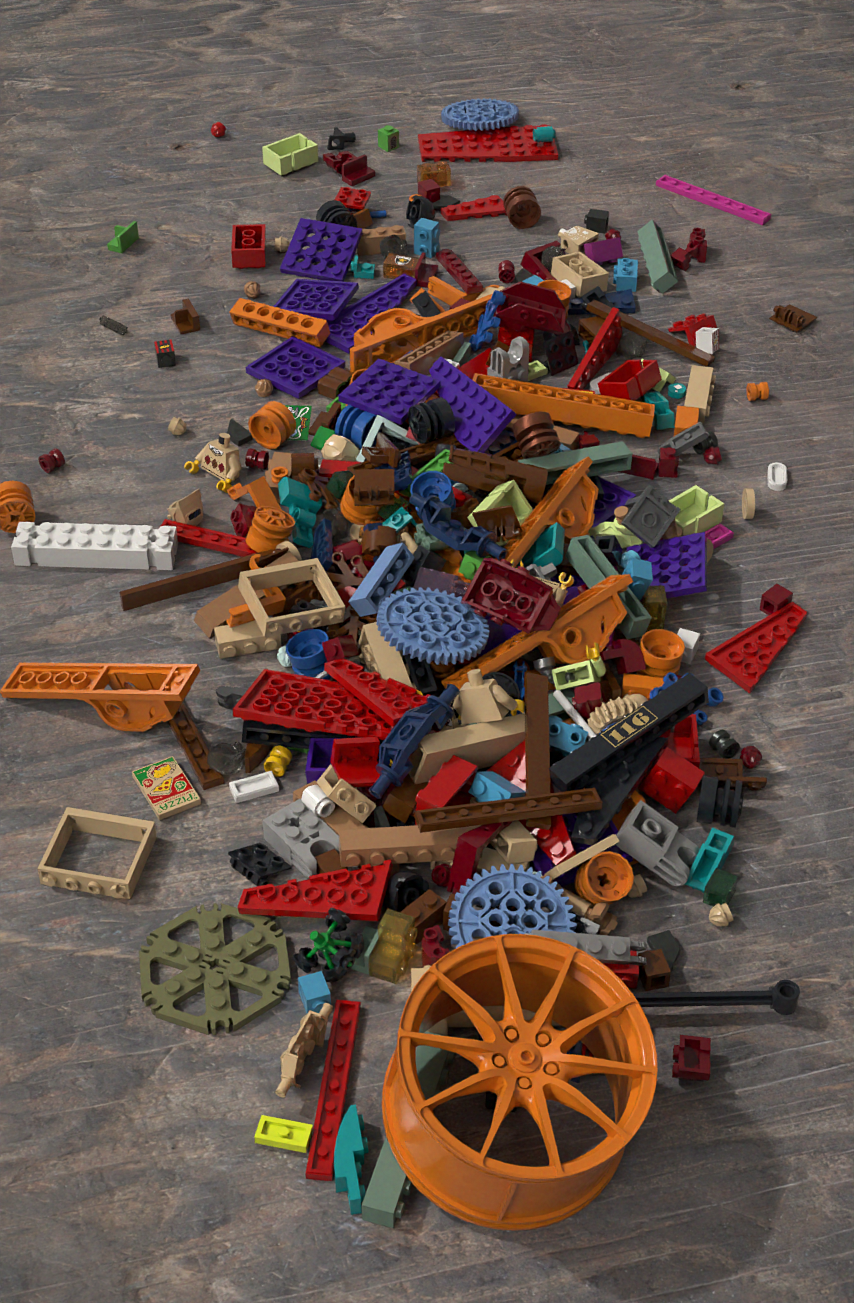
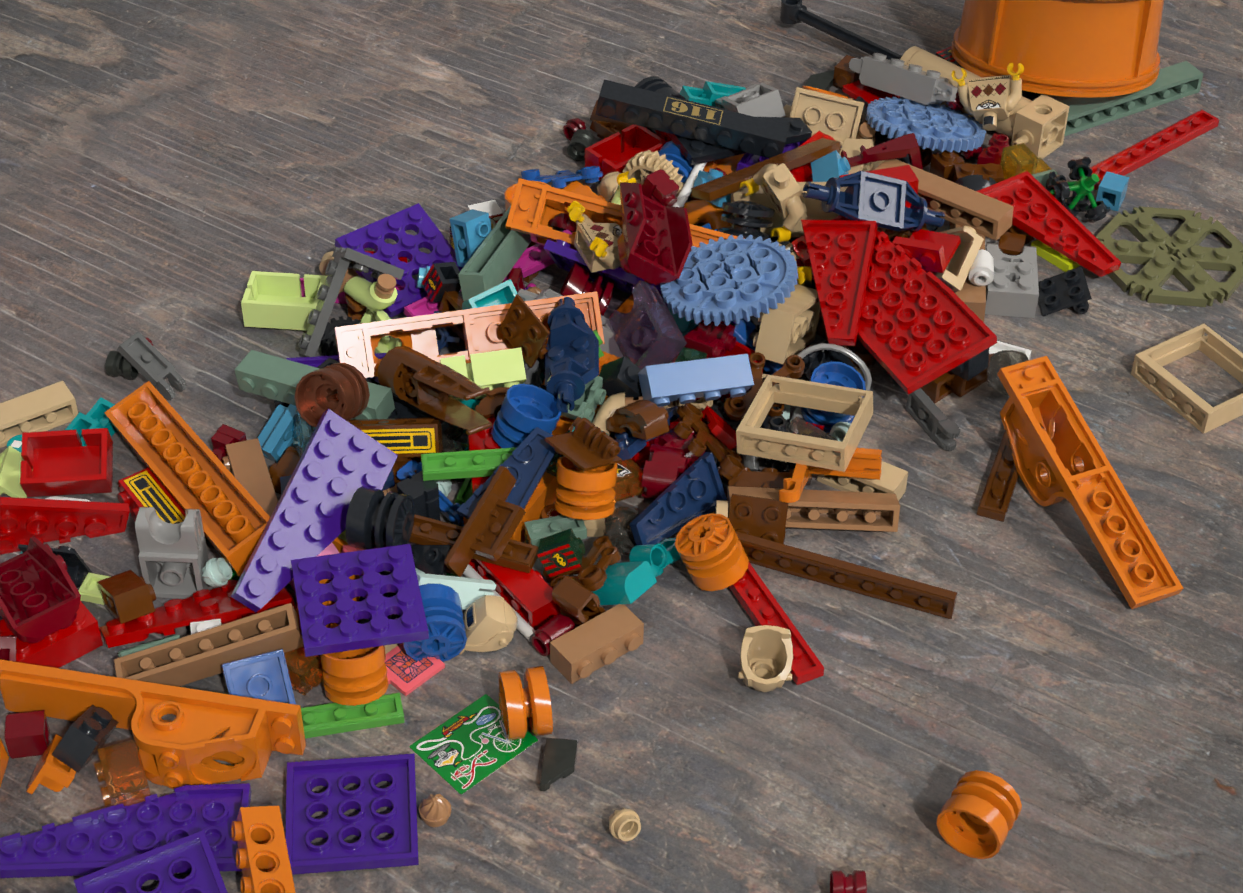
camera: 135 degrees left, 0 degrees up
(95, 545) = (919, 697): white brick -> none
(166, 788) = (1093, 396): tile -> none
(219, 459) = (644, 709): tan torso -> none
(242, 519) = (704, 612): dark red bracket -> none
(256, 458) = (590, 690): dark red wheel -> none
(259, 491) = (673, 603): orange hinge -> none
(278, 473) = (615, 620): orange bush -> none
(283, 1133) = (1215, 142): neon yellow plate -> none
(310, 1034) = (1160, 157): tan plate -> none
(321, 437) = (474, 668): green slope -> none
(326, 419) = (435, 691): reddish brown panel -> none
(334, 383) = (345, 736): reddish brown brick -> none
(340, 648) = (817, 351): dark red brick -> none
(349, 1157) = (1180, 106): teal slope -> none
(486, 321) = (77, 639): blue plant -> none
(507, 810) = (860, 144): reddish brown tile -> none
(642, 467) = (222, 392): dark red panel -> none
(668, 463) = (195, 361): dark red brick -> none
(685, 418) = (108, 385): orange panel -> none
(692, 1058) = (897, 24): dark red cylinder -> none
(720, 888) = (734, 75): clear green brick -> none
(720, 915) = (756, 71): tan plate -> none
(748, 503) = (215, 276): tan piece -> none
(754, 650) = (425, 186): red wing -> none
(775, 599) = (350, 201): dark red brick -> none
(777, 476) = (125, 299): white tile -> none

